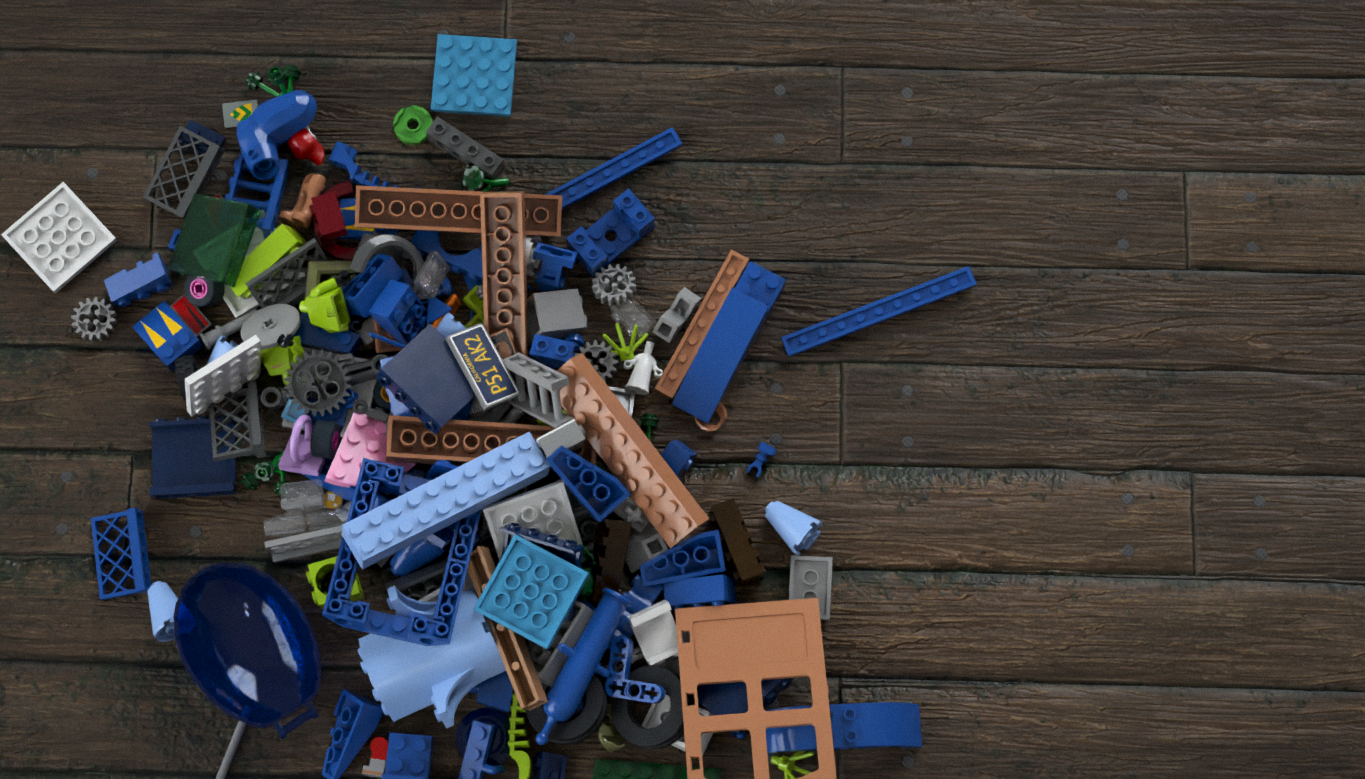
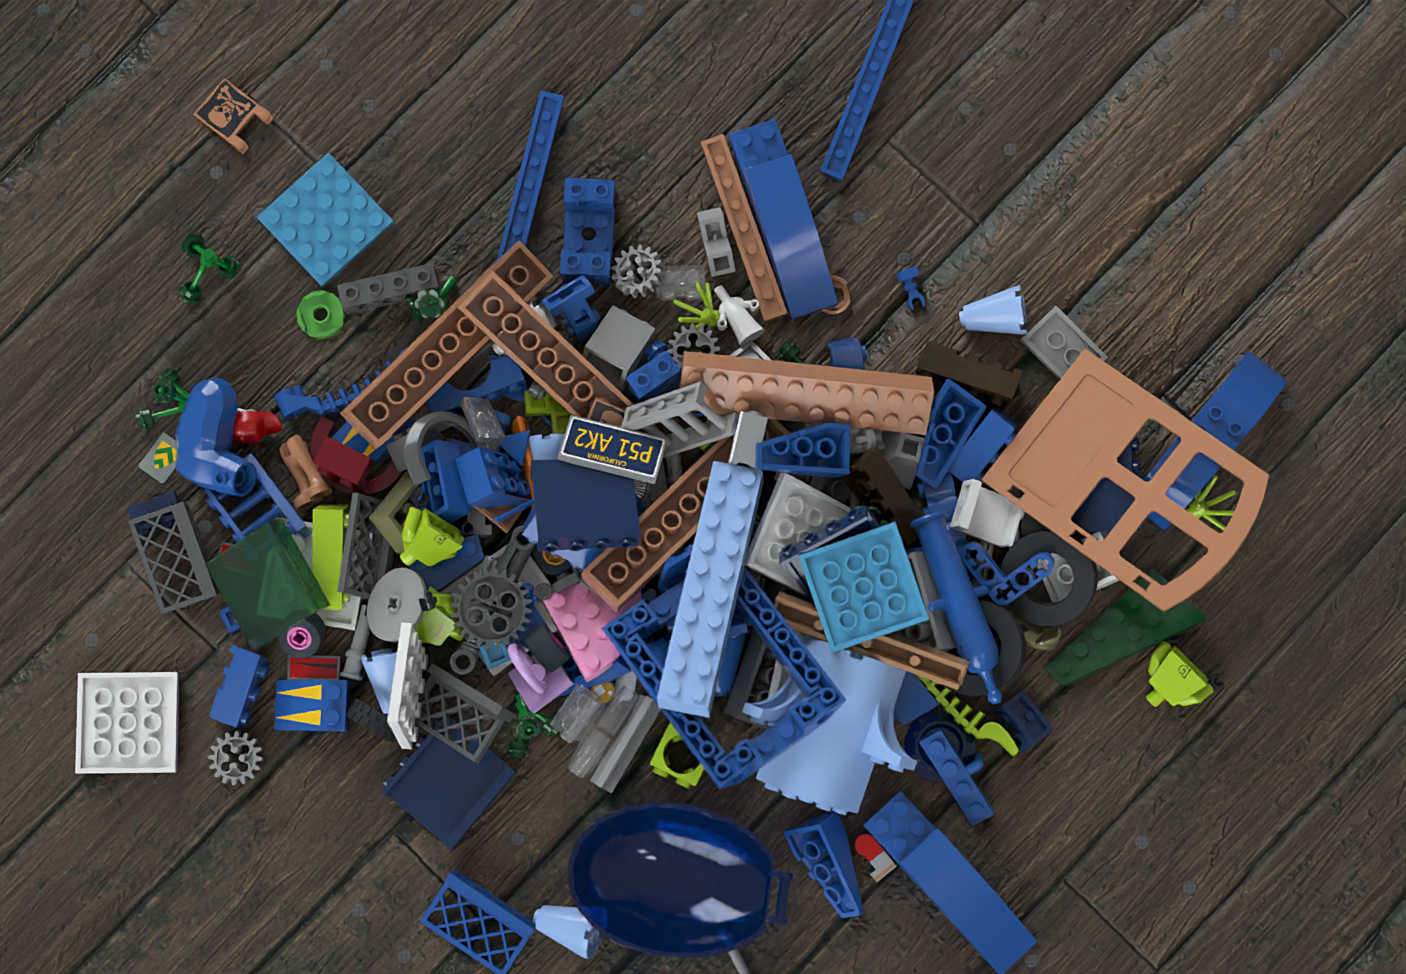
camera: 40 degrees left, 5 degrees up
(385, 15) = (226, 266): none -> dark green plant

